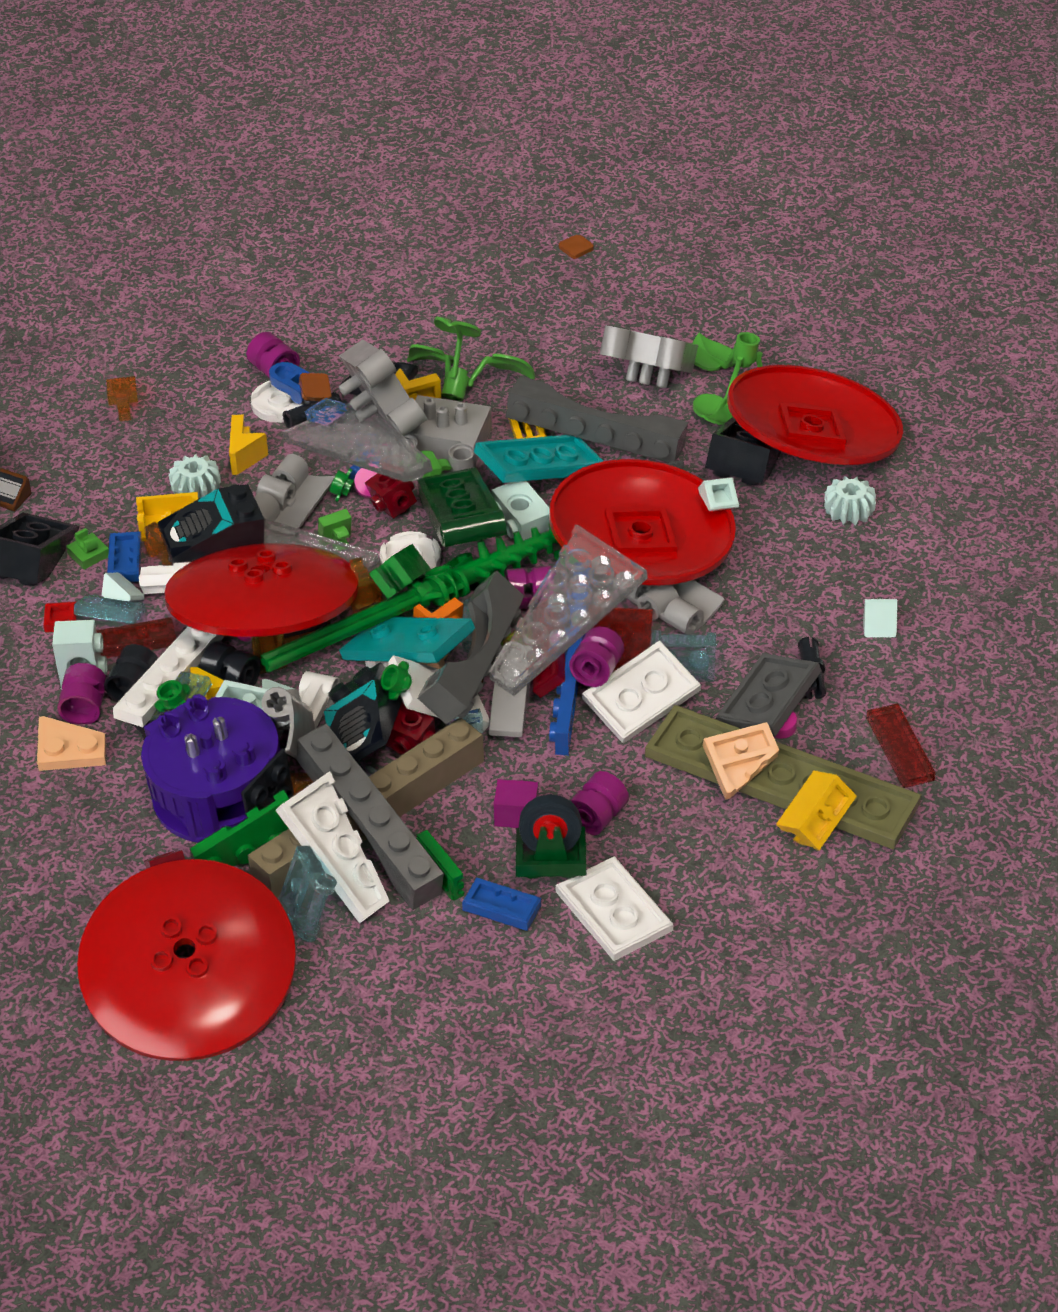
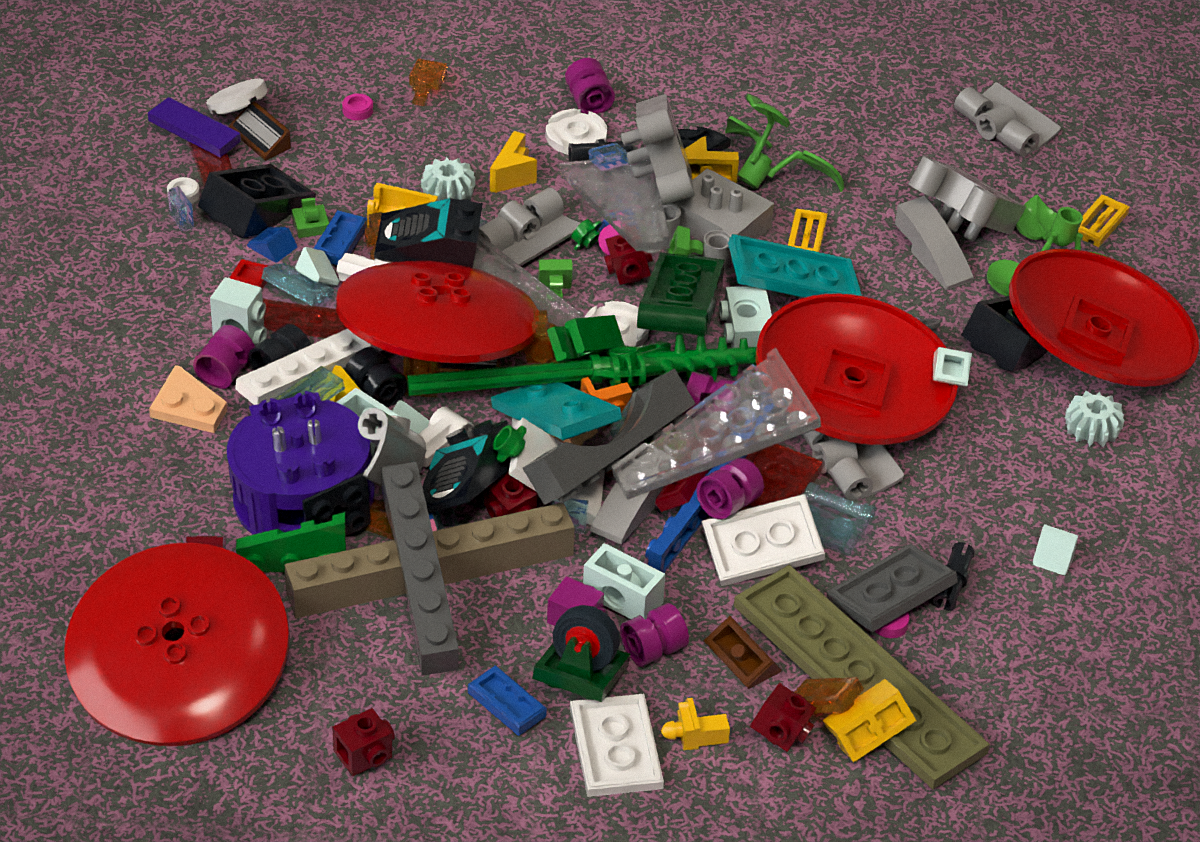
camera: 20 degrees right, 0 degrees up
(65, 580) = (273, 243): none -> blue slope
(73, 438) = (357, 106): none -> dark pink tile
(171, 695) = (295, 382): green plate -> none
(286, 379) = (589, 109): blue plate -> none
(298, 894) = (320, 621): clear light blue plate -> none
(314, 386) = (610, 127): dark orange piece -> none
(321, 821) = (365, 572): white wing -> none
(401, 984) = (363, 741): none -> dark red brick
(452, 875) = (467, 640): green tile -> none
(544, 407) = (921, 284): dark grey arch -> none
(554, 766) = (627, 583): none -> light aqua brick
(576, 246) = (964, 67): dark orange piece -> none
(633, 393) = (933, 242): none -> light grey slope
(637, 278) = (1006, 118): none -> light grey panel
(673, 870) = (696, 730): none -> yellow piece
(674, 793) = (741, 653): none -> reddish brown slope
(740, 756) = (821, 638): light nougat wing -> none
(746, 833) = (784, 718): none -> dark red brick
(768, 802) = (831, 694): none -> clear orange plate
(771, 334) = (1110, 226): none -> yellow tile
(900, 745) = (1002, 687): clear red tile -> none

